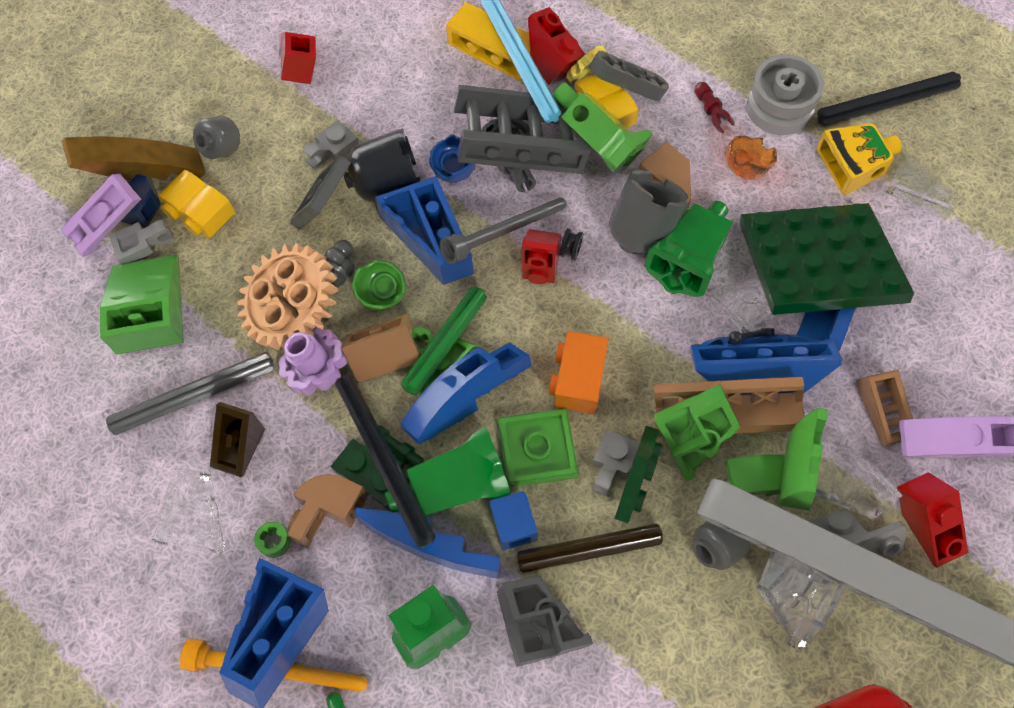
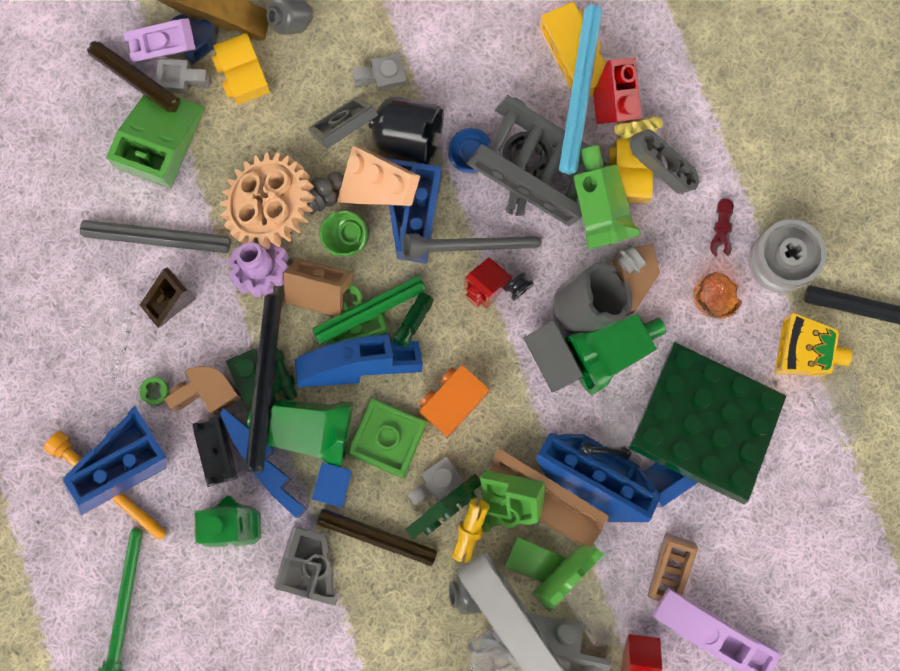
camera: 25 degrees right, 15 degrees up
(92, 262) = (134, 76): none -> dark brown axle
(370, 562) = (214, 451): none -> black hinge
(382, 217) = (376, 181): none -> light nougat wing
(493, 325) = (413, 320): none -> dark green axle
(647, 277) = (553, 356): none -> dark grey brick
(658, 159) = (631, 260): none -> light grey plate
(678, 480) = (470, 530): none -> yellow pin

